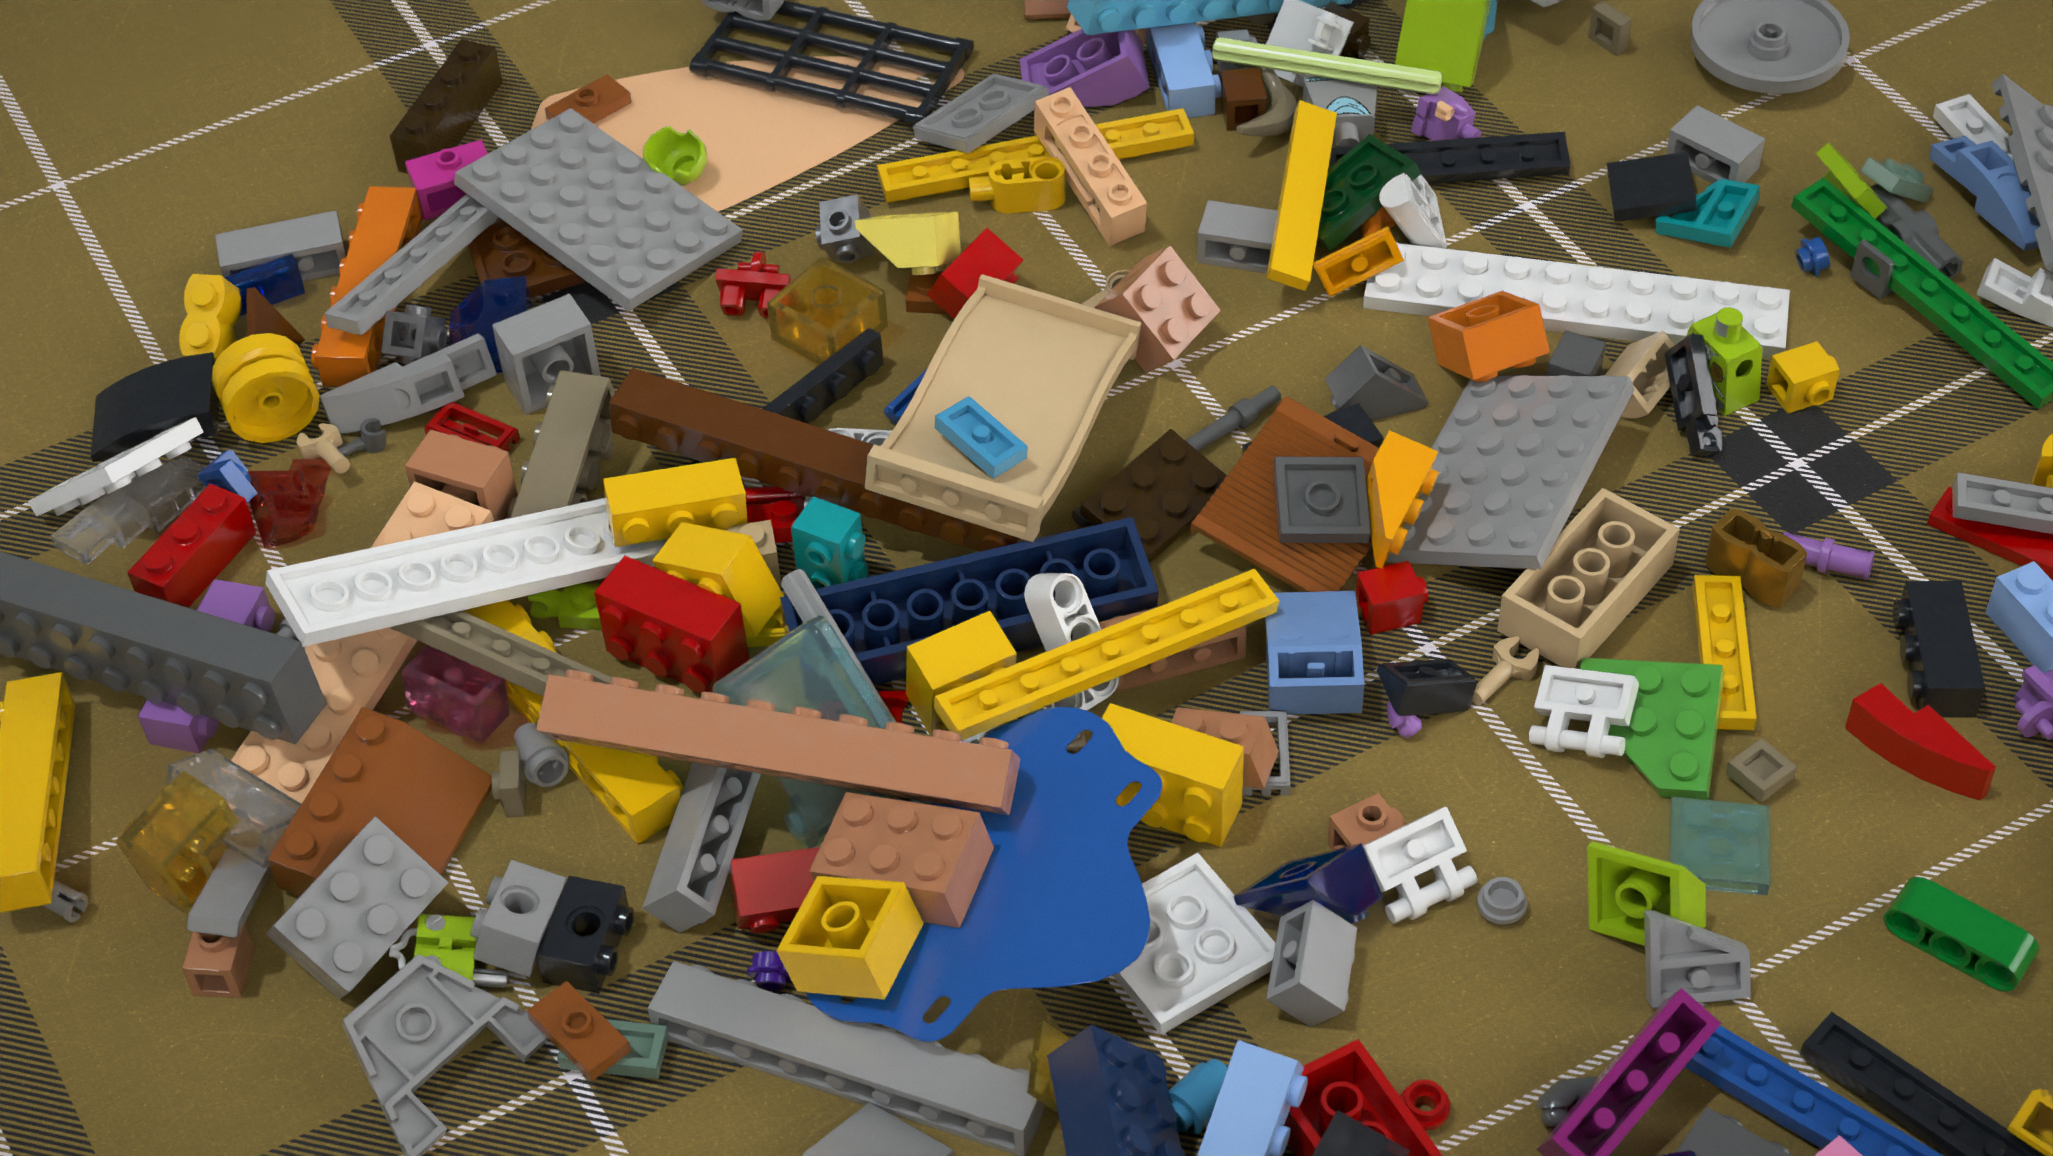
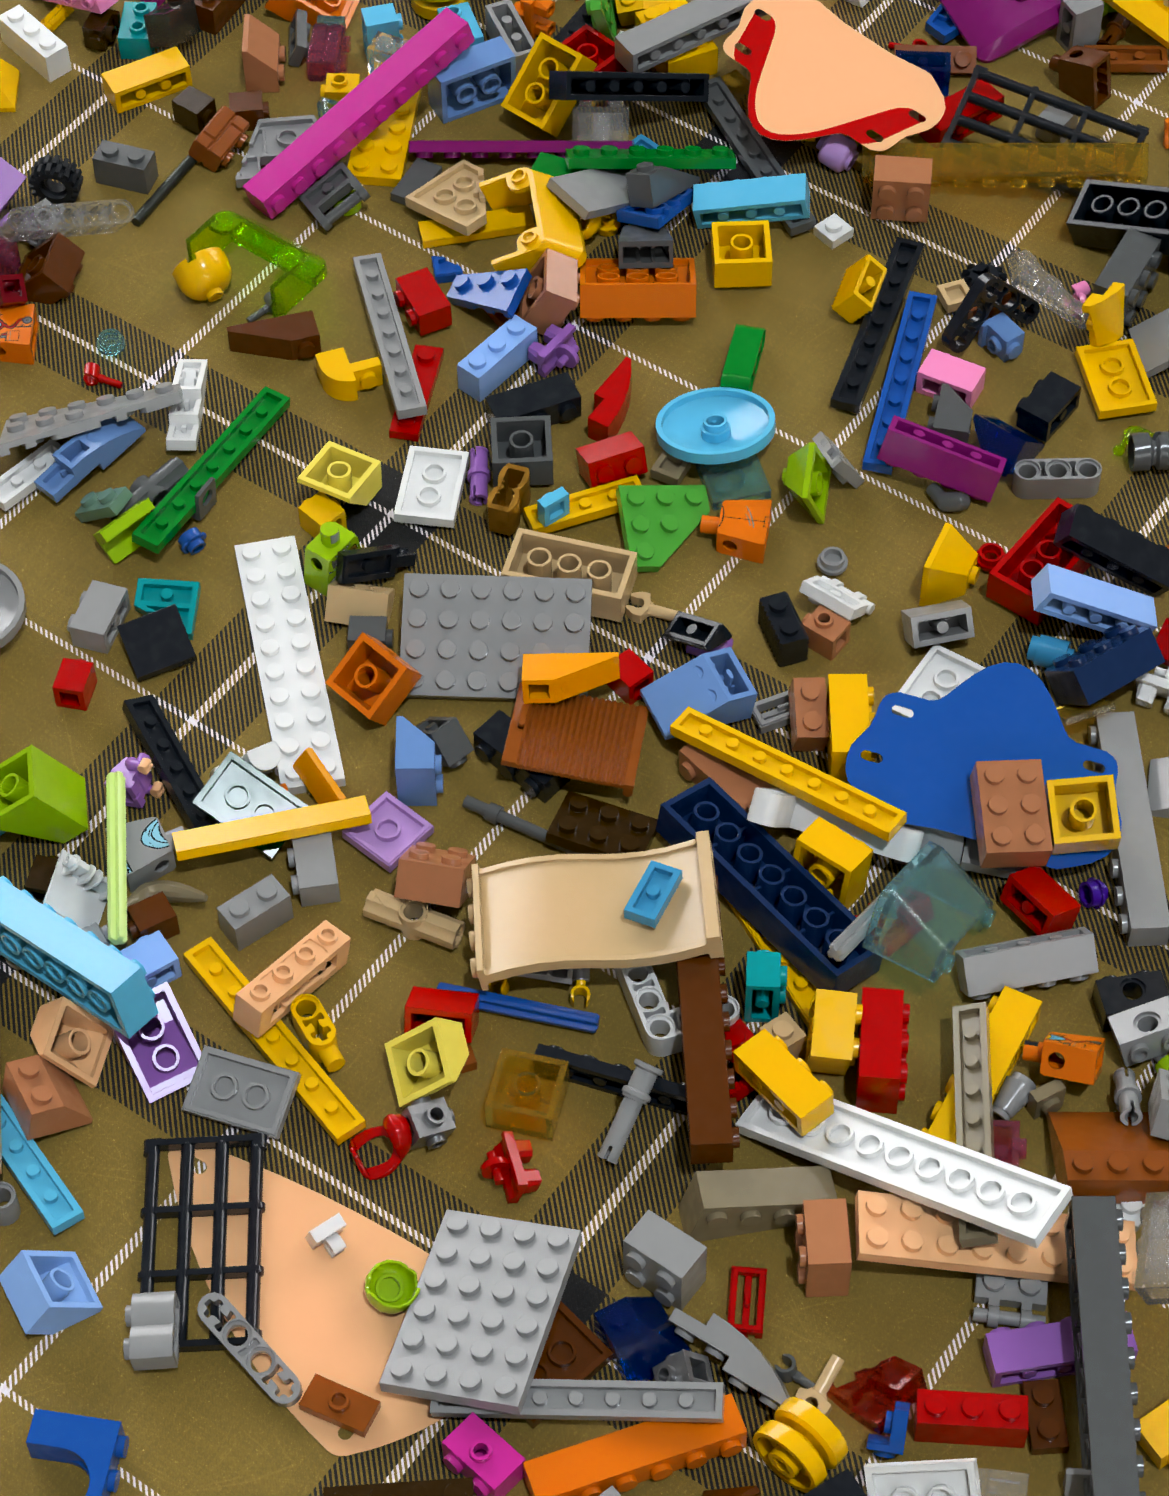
camera: 115 degrees left, 5 degrees up
(452, 859) = (1127, 1096): none -> light grey pin
(538, 814) = (1081, 1056): none -> orange torso
(683, 49) = (246, 1352): none -> light grey beam
(752, 384) = (635, 1096): none -> light grey pin
(772, 132) = (328, 1234): none -> white tile
(780, 743) = (974, 909): nougat brick -> none
(854, 183) = (398, 1131): none -> red piece
(1204, 169) = (255, 912): none -> light grey brick
(1265, 315) = (390, 833): none -> lavender plate
(1321, 500) = (583, 716): dark grey plate -> none
(1331, 328) = (416, 766): none -> medium blue slope
(1335, 879) = (886, 640): clear blue slope -> none
(1403, 779) = (783, 629): none -> black brick
(1413, 1013) = (948, 568): none -> yellow slope
(1583, 696) = (669, 551): white plate -> none
(1601, 804) = (741, 528): none -> orange torso
(1617, 109) = (74, 684): none -> red brick
(1714, 587) = (553, 506): none -> medium azure plate
(1793, 696) = (611, 459): none -> red brick
(1816, 834) = (715, 425): none -> medium azure dish
(1822, 500) = (431, 486): none -> white plate
(1844, 598) = (525, 443): none -> dark grey brick
(1855, 396) = (343, 474): none -> light yellow slope

